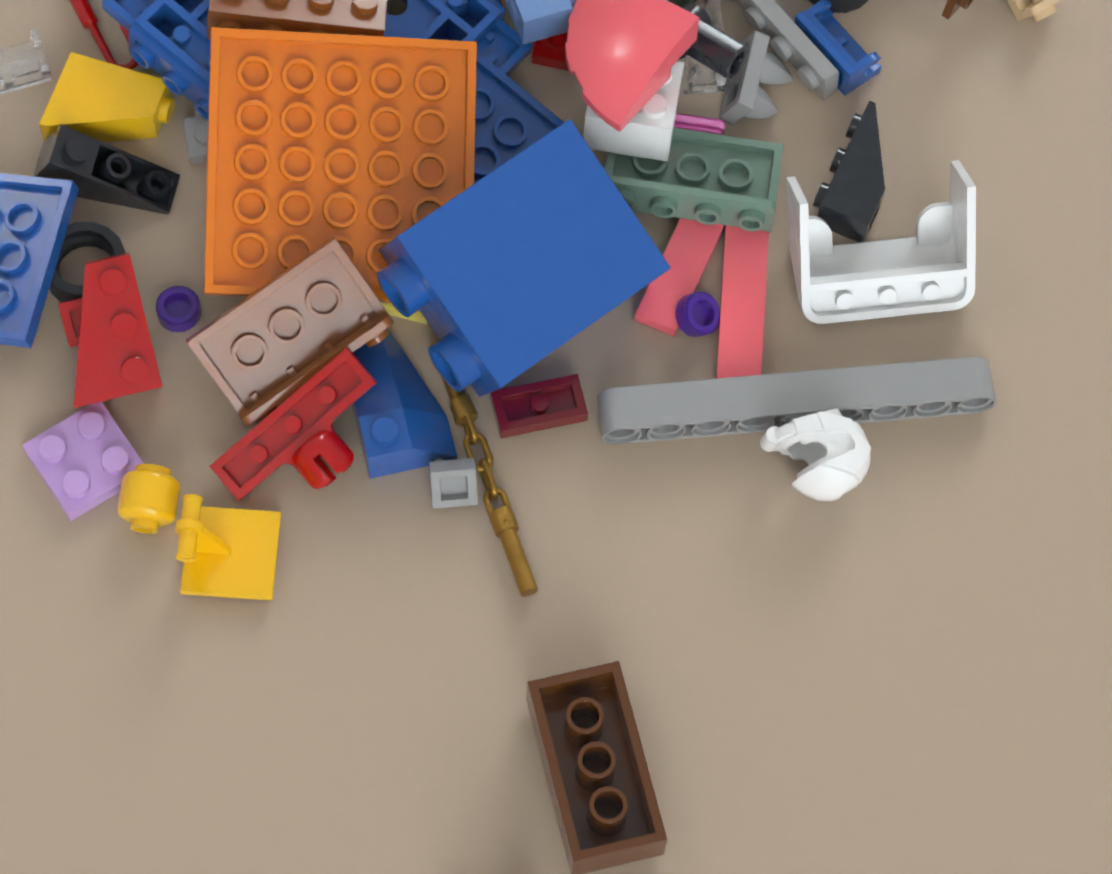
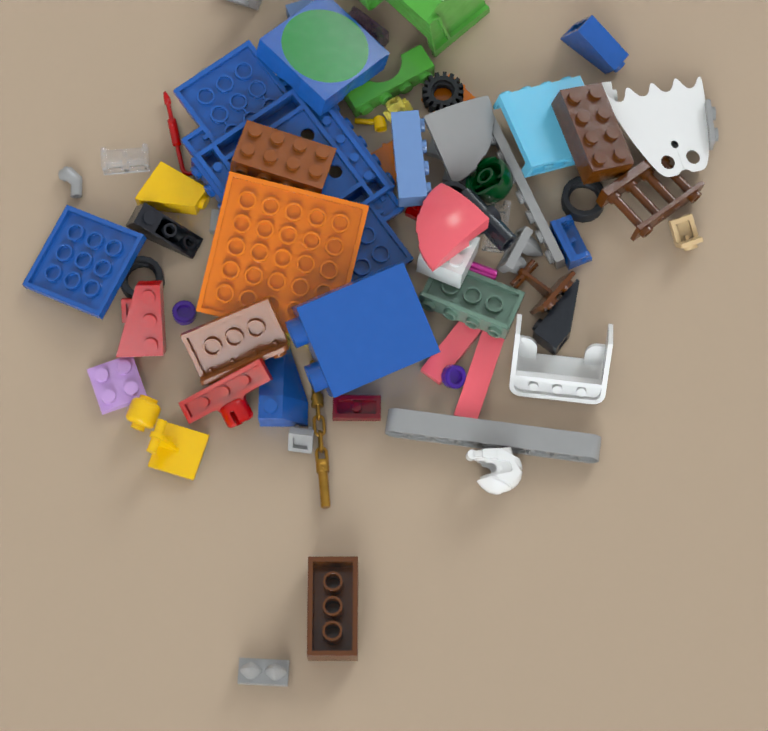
camera: 20 degrees right, 5 degrees up
(828, 141) = (549, 294): none -> reddish brown plate

